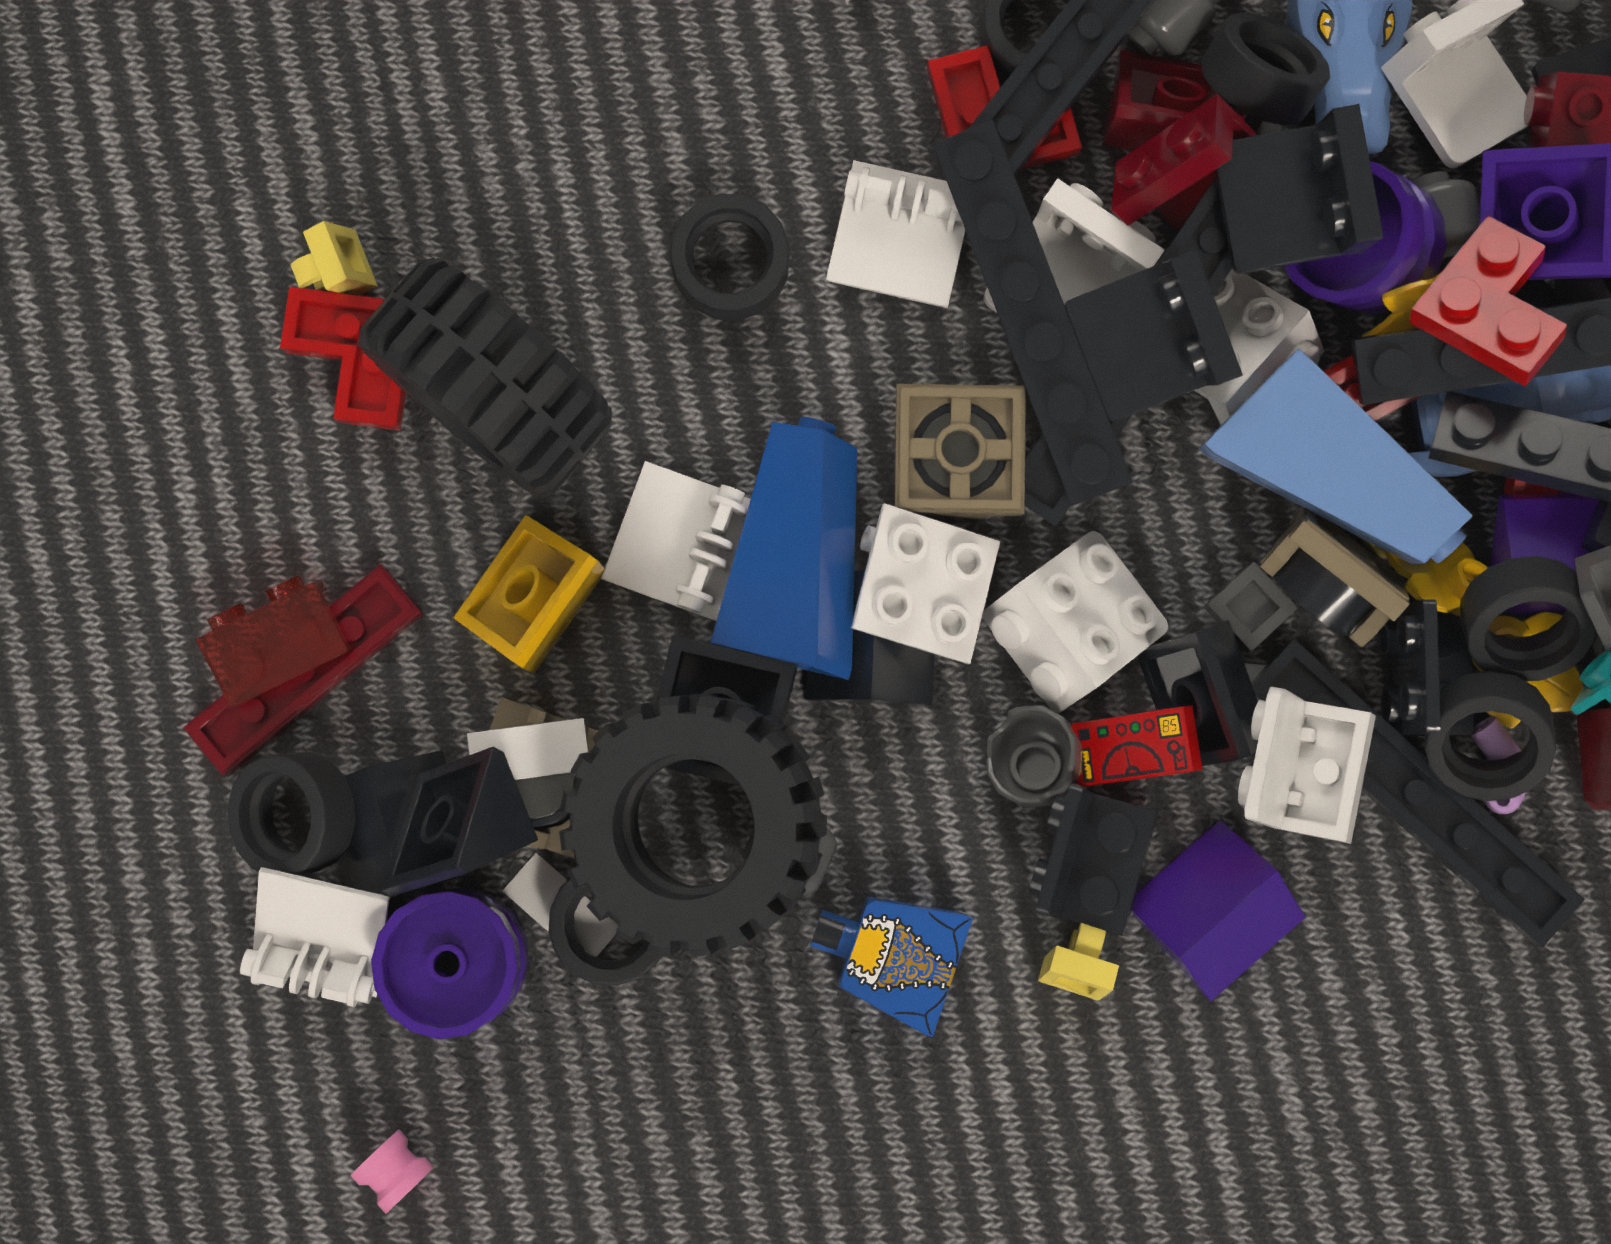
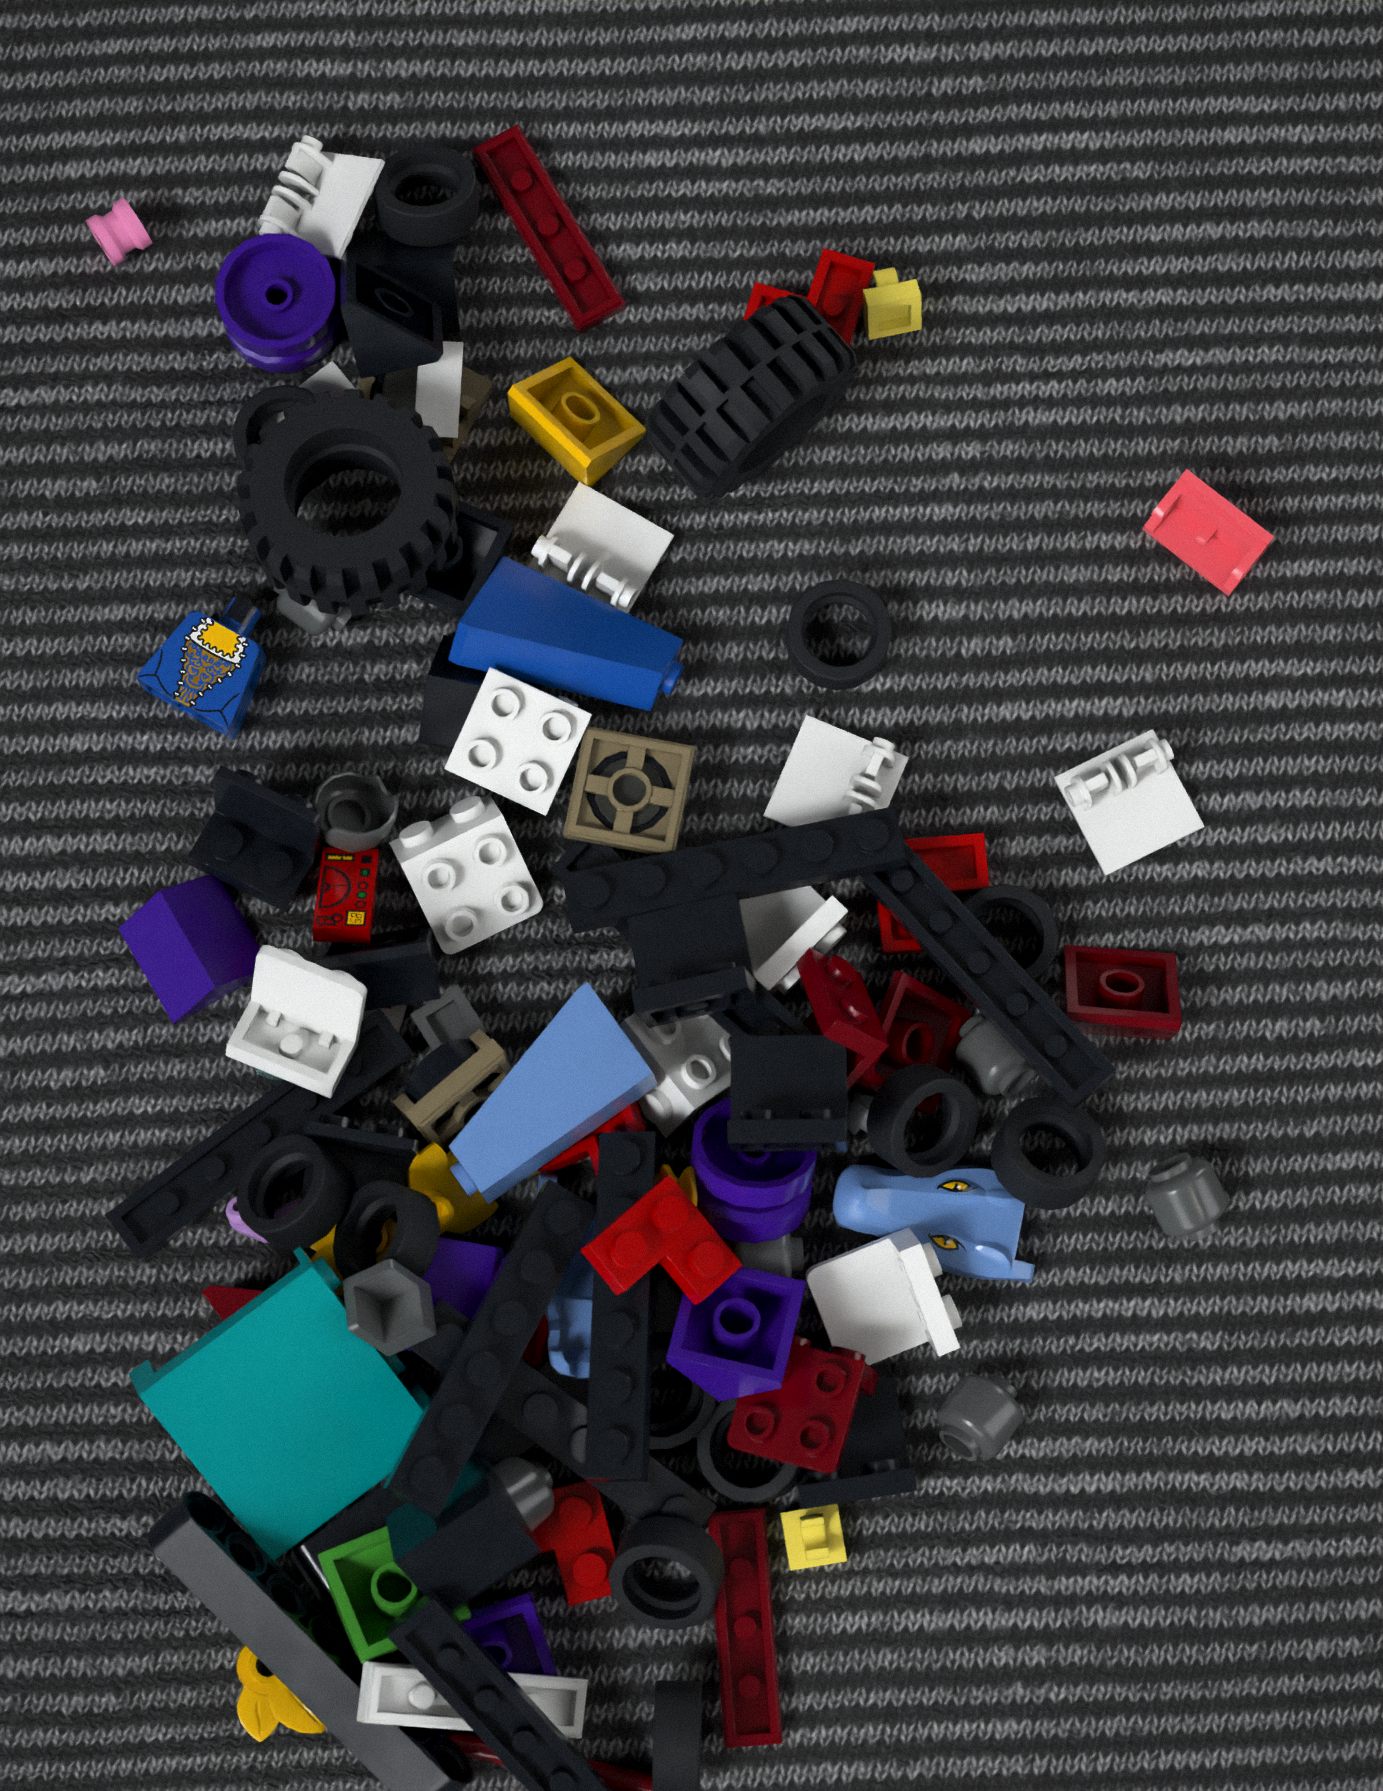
camera: 100 degrees right, 5 degrees down
(273, 642) = (574, 203): clear red bracket -> none
(1079, 967) = (169, 818): light yellow tile -> none

